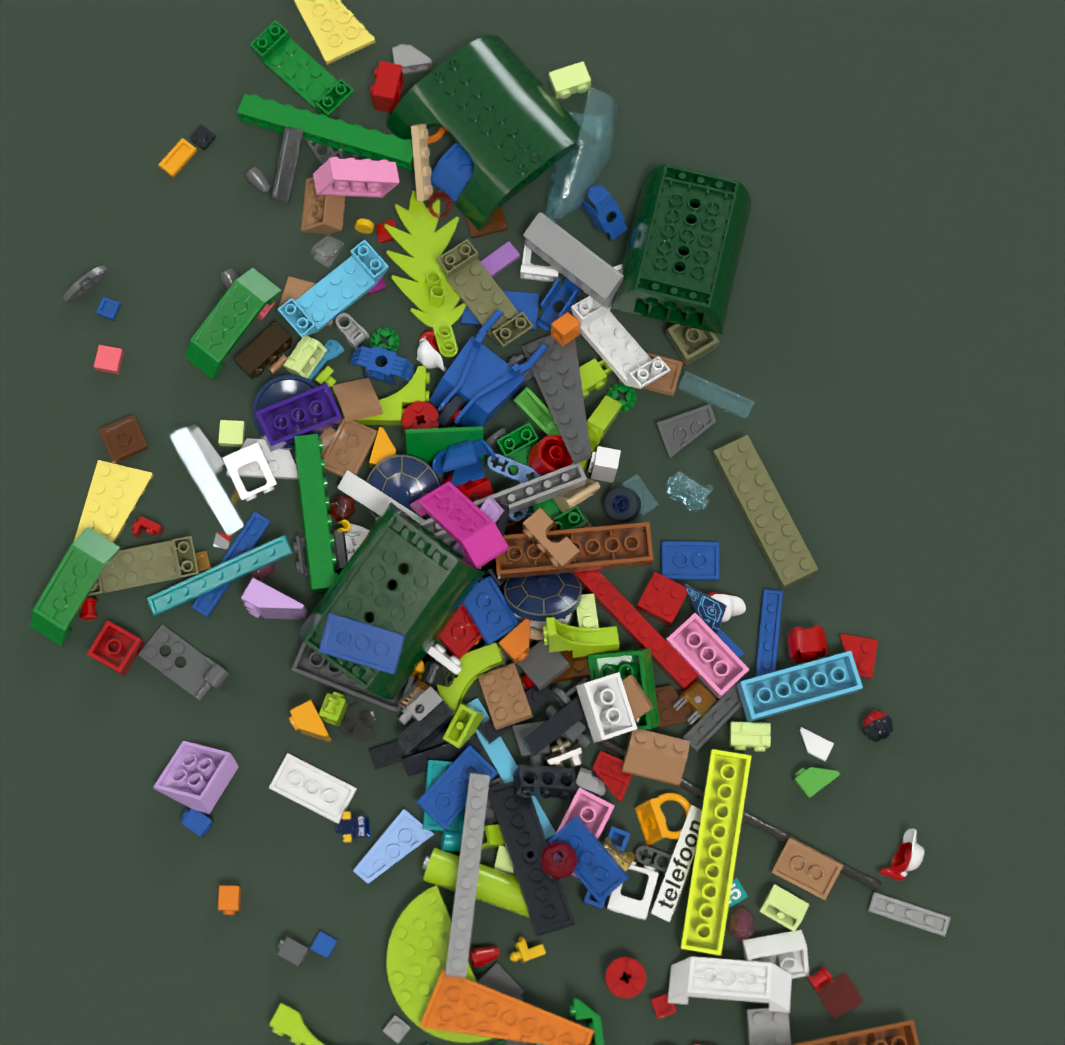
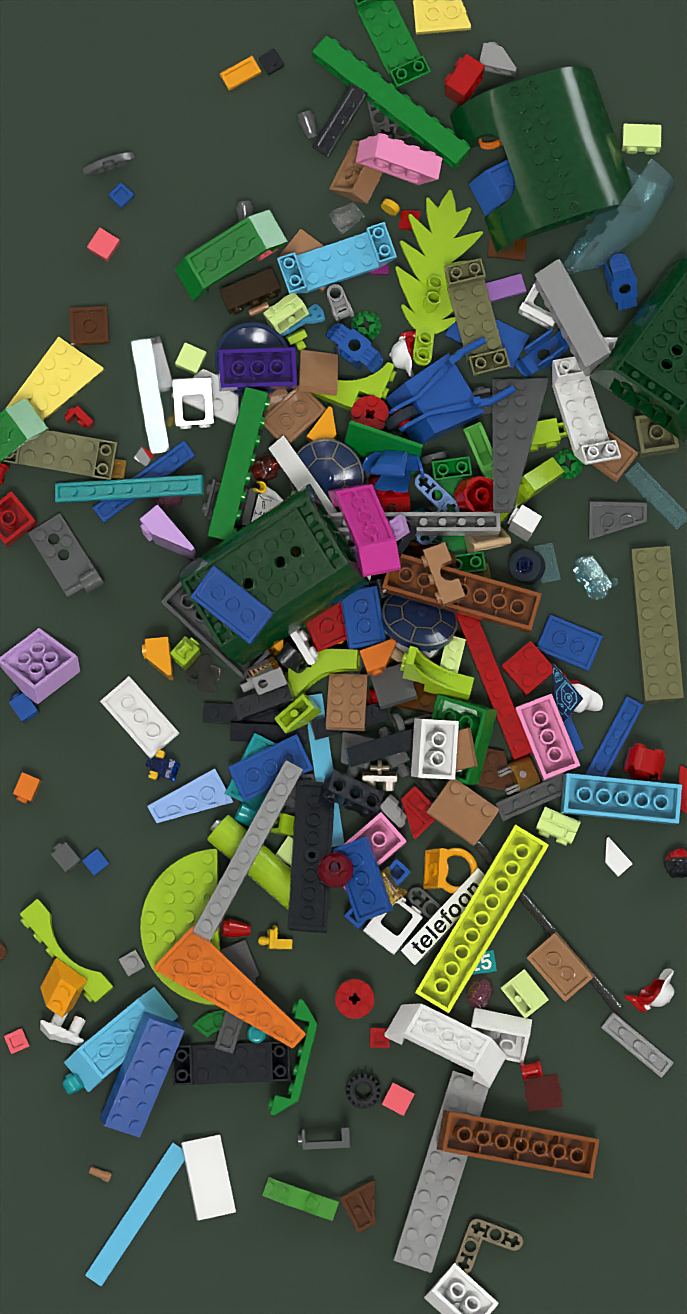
camera: 25 degrees right, 5 degrees up
(421, 162) = (467, 166): tan plate -> none
(447, 200) = (478, 211): clear red piece -> none
(565, 329) = (539, 379): orange brick -> none
(813, 780) = (600, 889): bright green slope -> none

